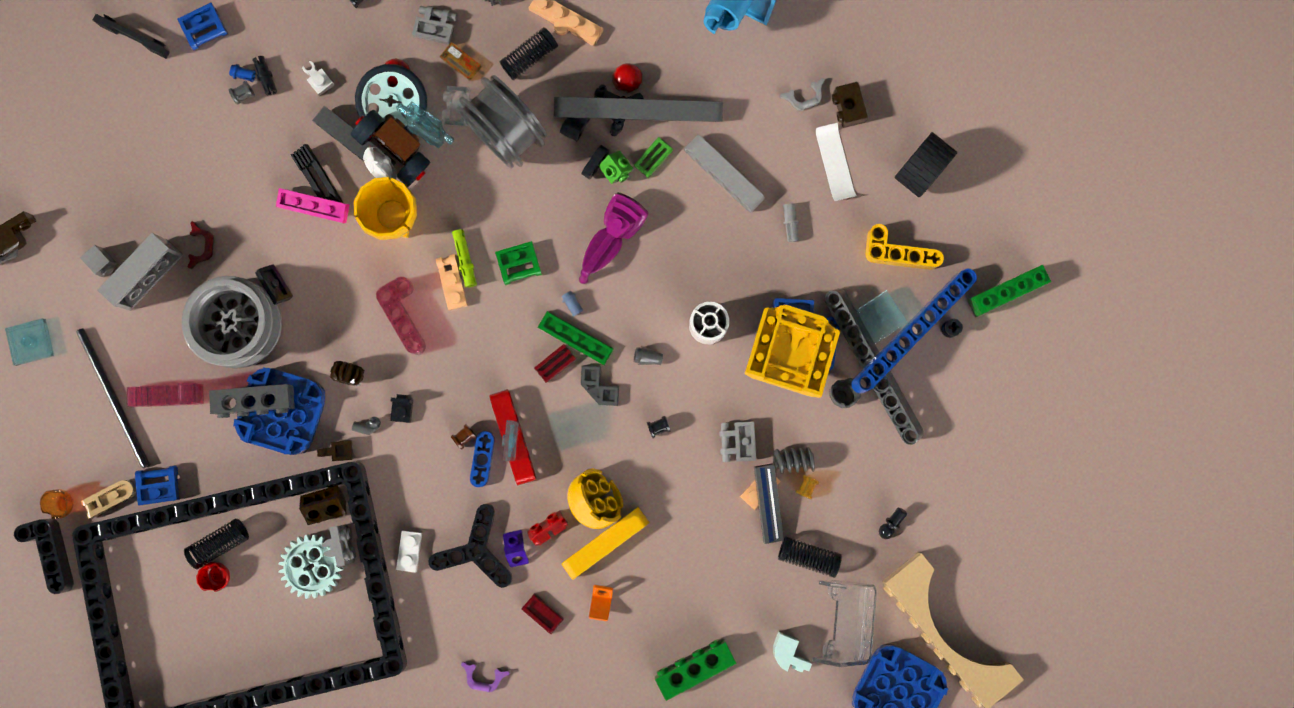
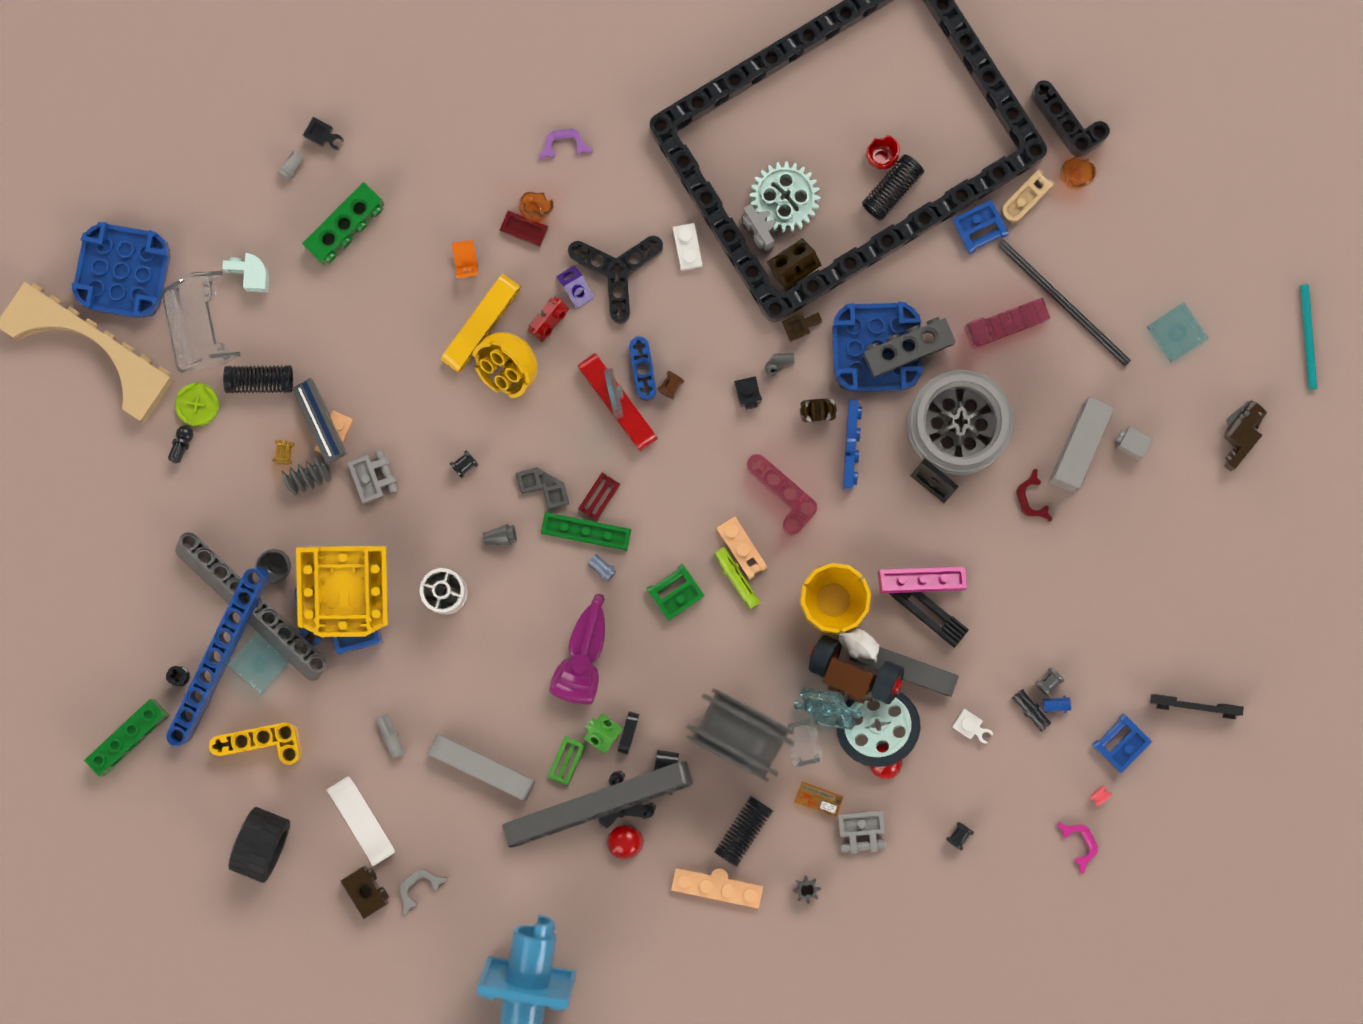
camera: 160 degrees right, 0 degrees up
(331, 336) = (851, 454): none -> blue hinge
(525, 629) = (535, 206): none -> clear orange hair
(868, 553) = (197, 404): none -> lime tile

